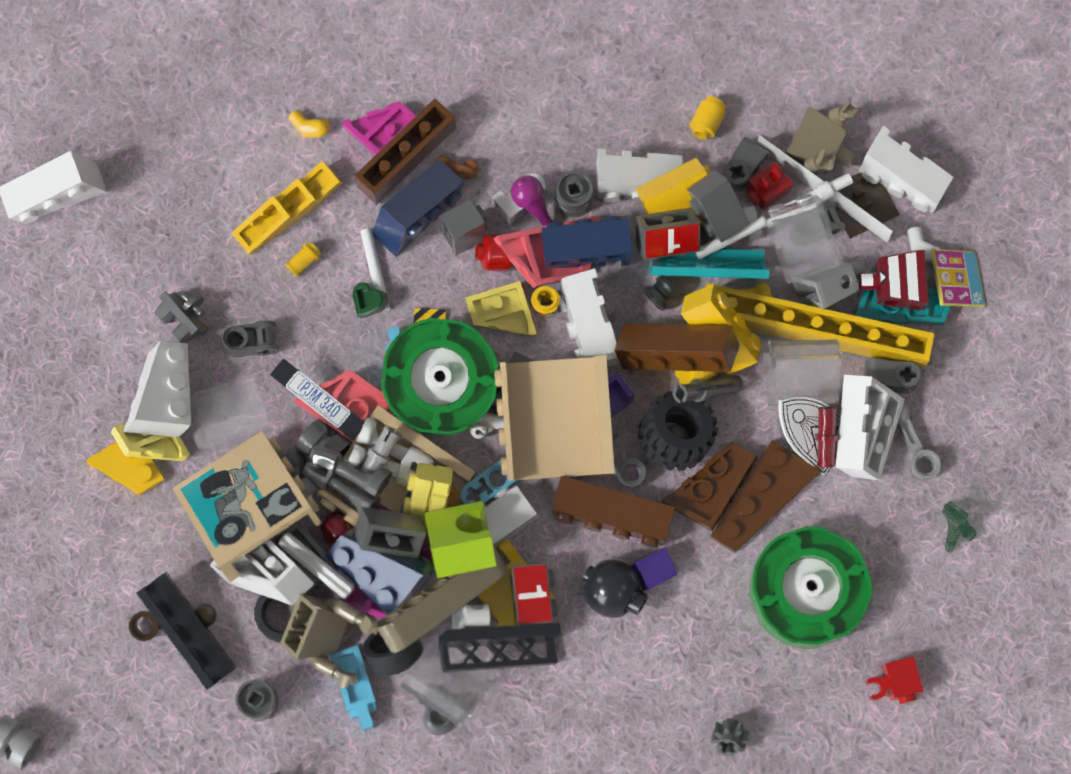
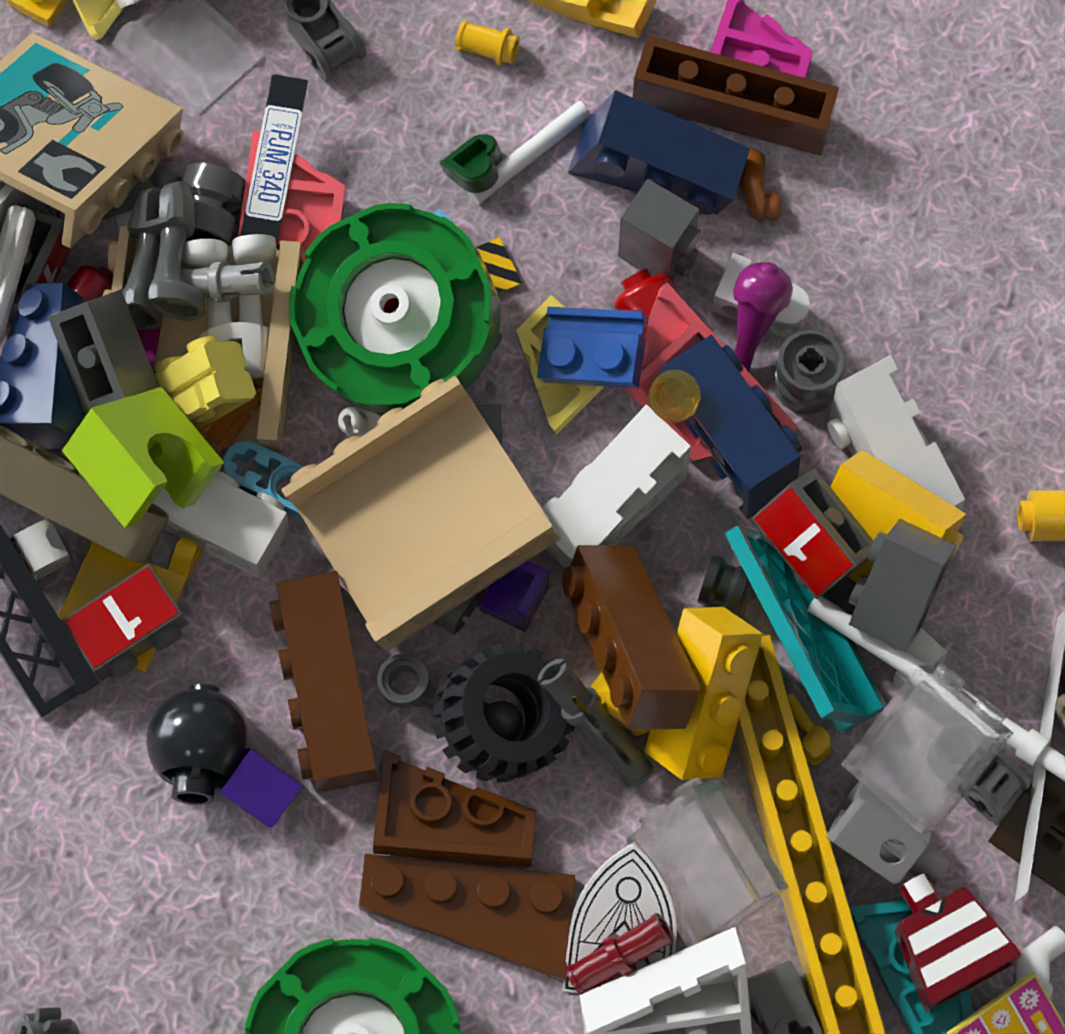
camera: 65 degrees right, 5 degrees down
(508, 290) = (593, 347): none -> blue plate
(548, 295) = (607, 411): yellow cone -> none
(566, 261) = (674, 395): none -> clear yellow plate
(744, 163) = (1017, 609): dark grey piece -> none
(768, 186) = (996, 663): red brick -> none

